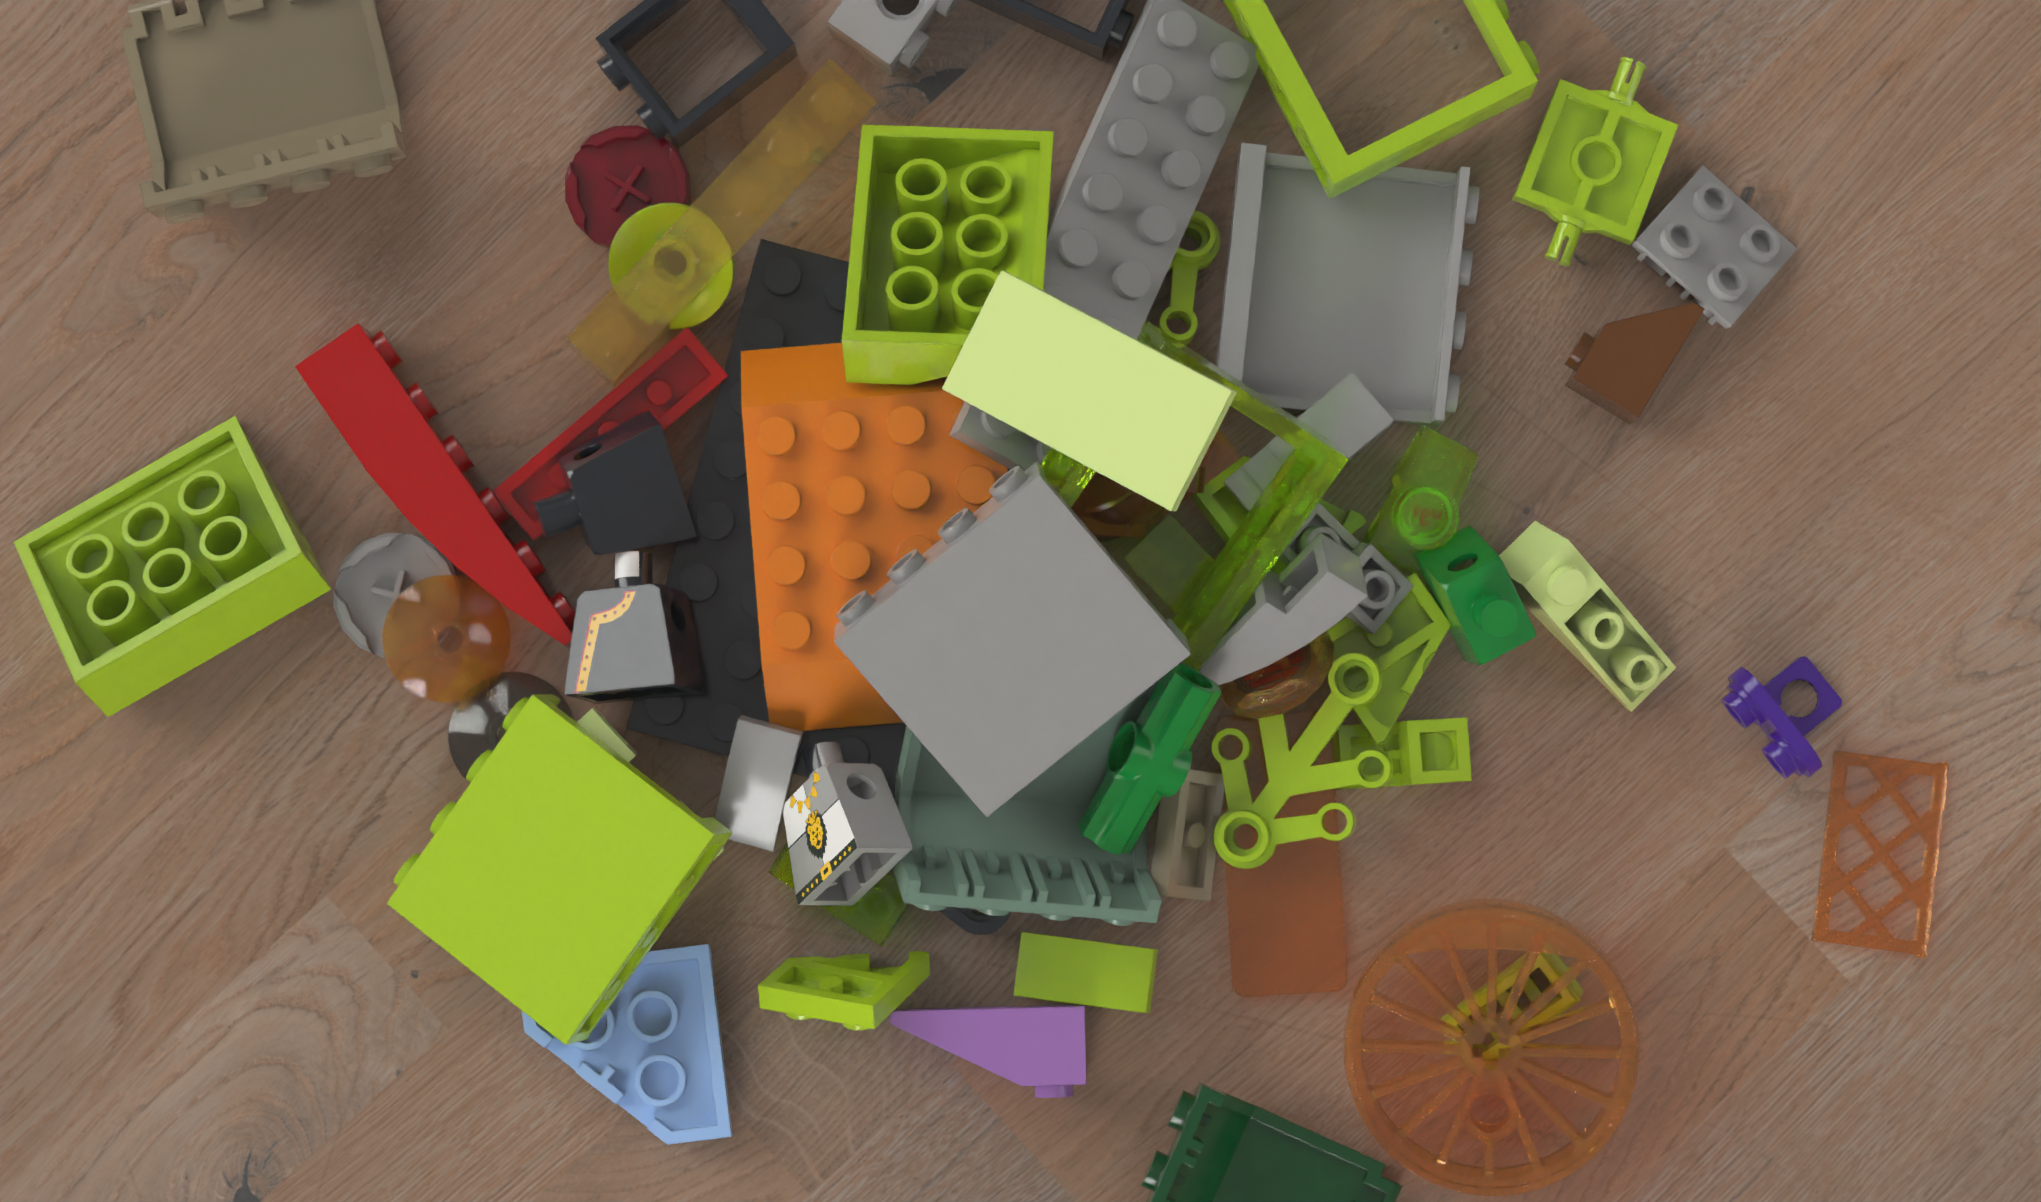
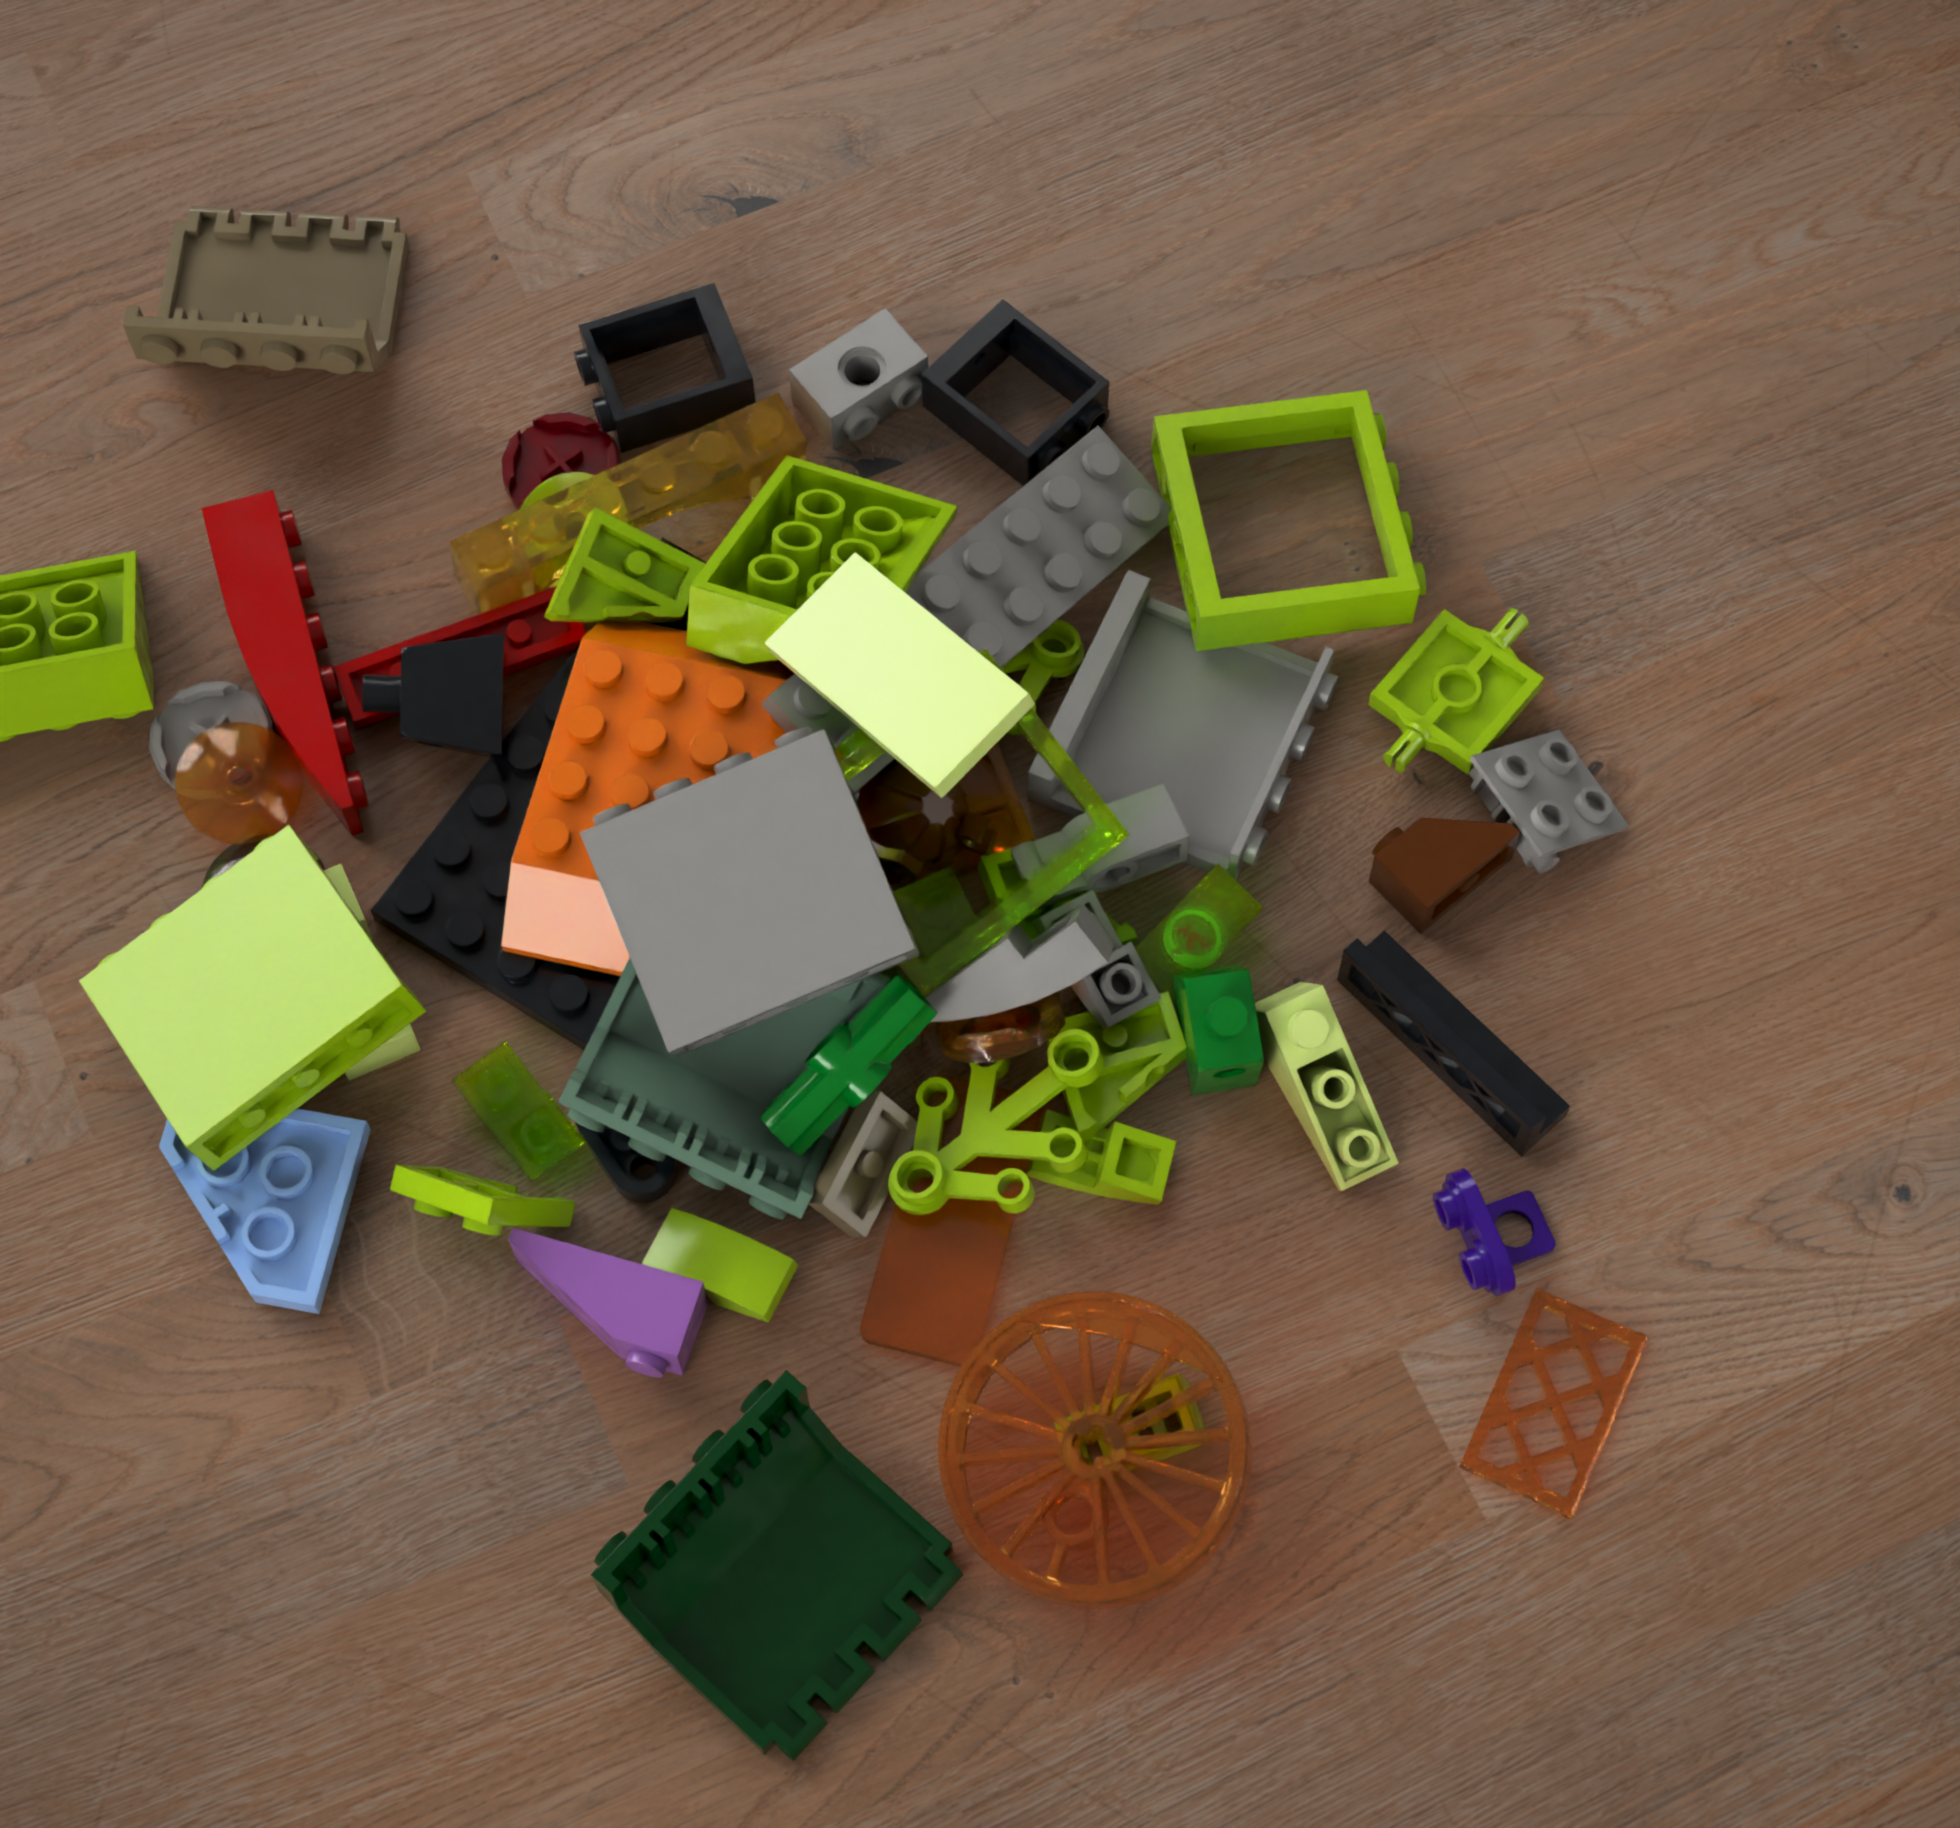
camera: 20 degrees right, 20 degrees down
(633, 639) = (404, 825): torso -> none
(749, 316) = (622, 576): none -> lime wing
(758, 781) = (468, 987): light grey slope -> none
(841, 829) = (540, 1027): light grey torso -> none
(1693, 532) = (1451, 1041): none -> black fence

